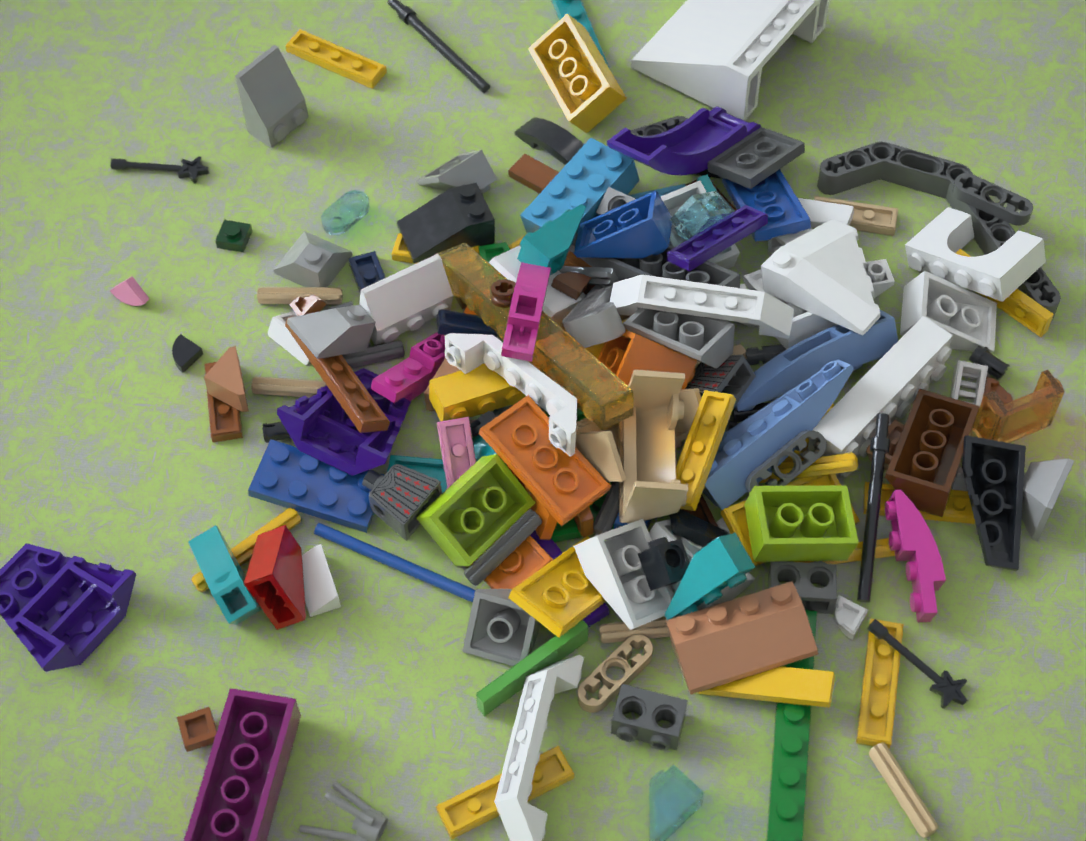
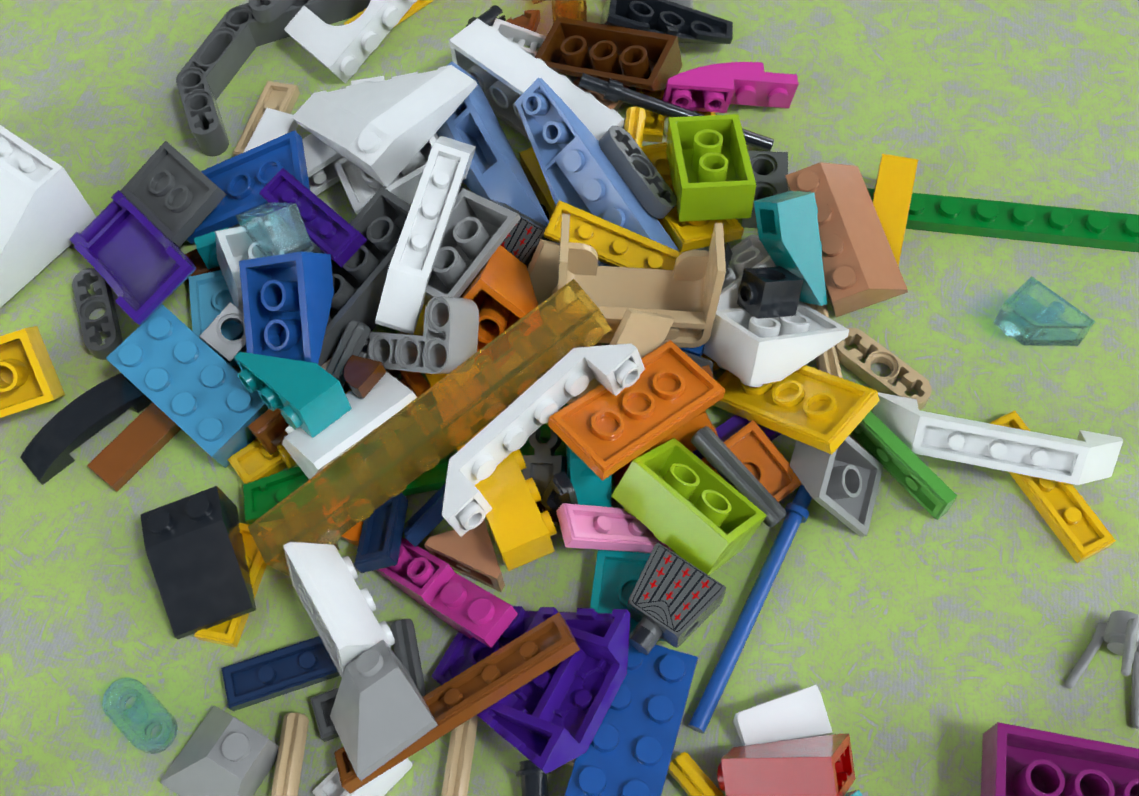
camera: 85 degrees left, 5 degrees up
(307, 305) = (316, 762): tile -> none
(460, 171) = (103, 547): light grey slope -> none
(502, 293) = (364, 443): reddish brown bush -> none
(525, 312) = (422, 402): dark pink slope -> none
(651, 708) = (934, 332): dark grey brick -> none
(849, 616) = (797, 156): white tile -> none
(879, 688) = (863, 138): yellow tile -> none
(903, 790) = (979, 127): tan axle -> none
(945, 685) = (861, 86): black piece -> none
(951, 307) = (418, 45): white slope -> none

